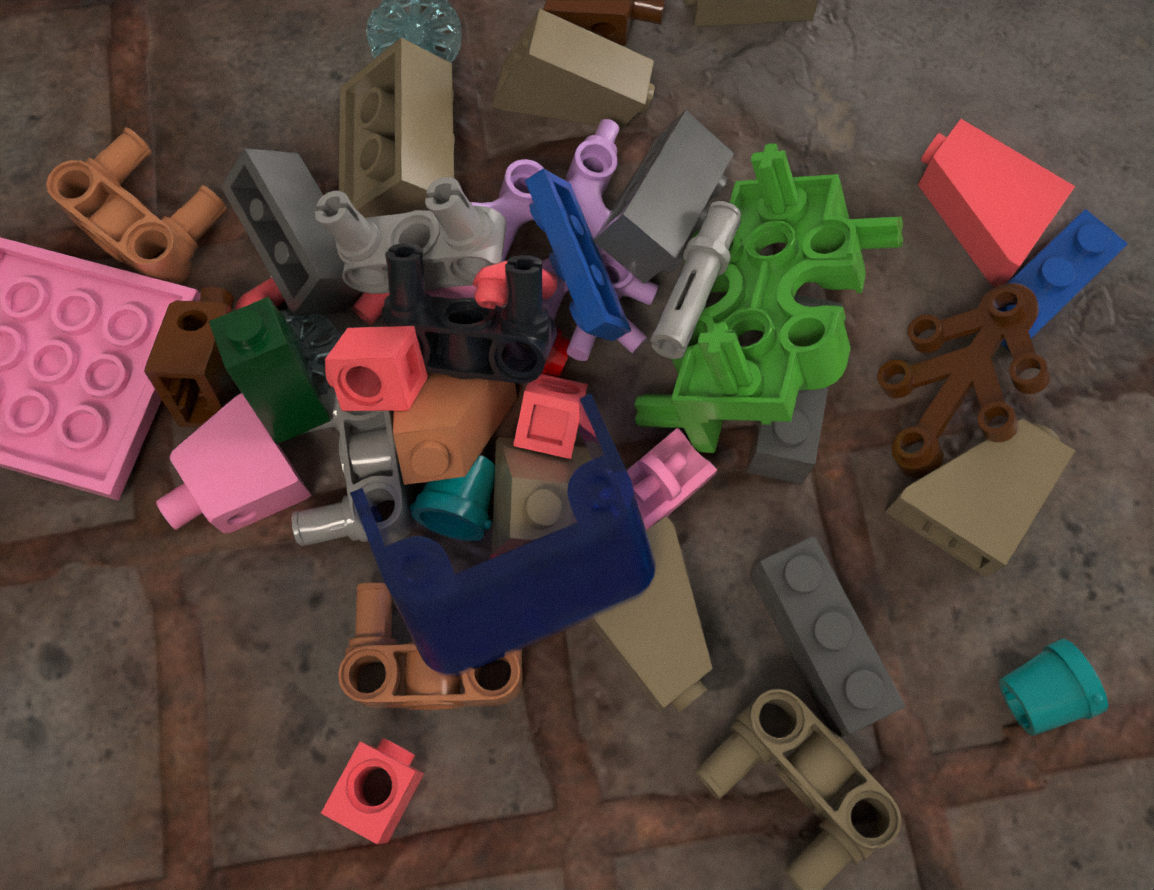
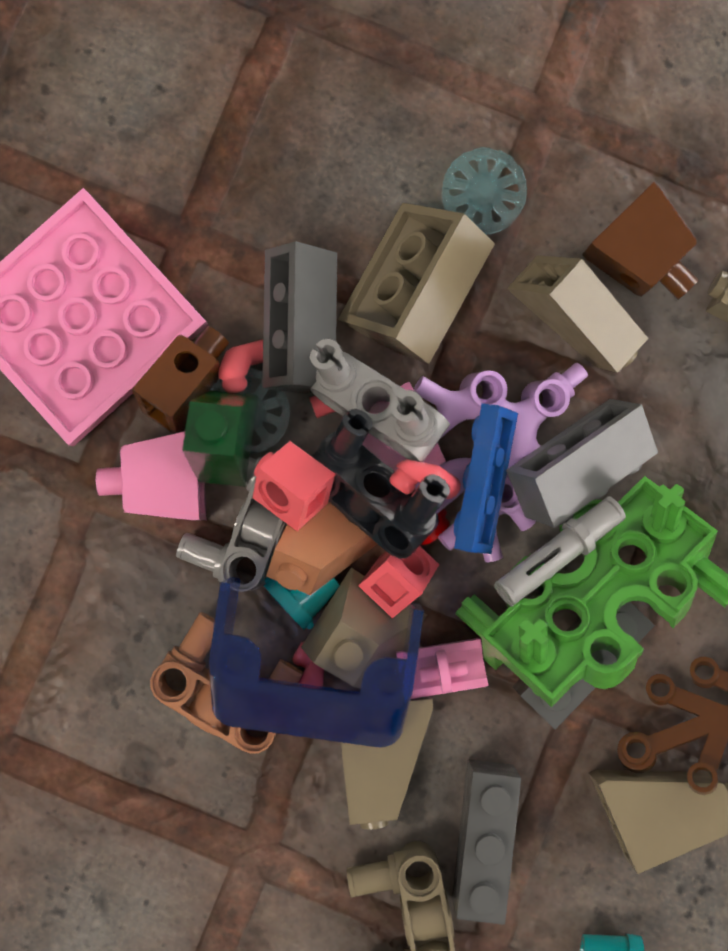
camera: 30 degrees right, 15 degrees up
(120, 222) = (179, 229): nougat piece -> none
(347, 801) = (123, 769): coral brick -> none

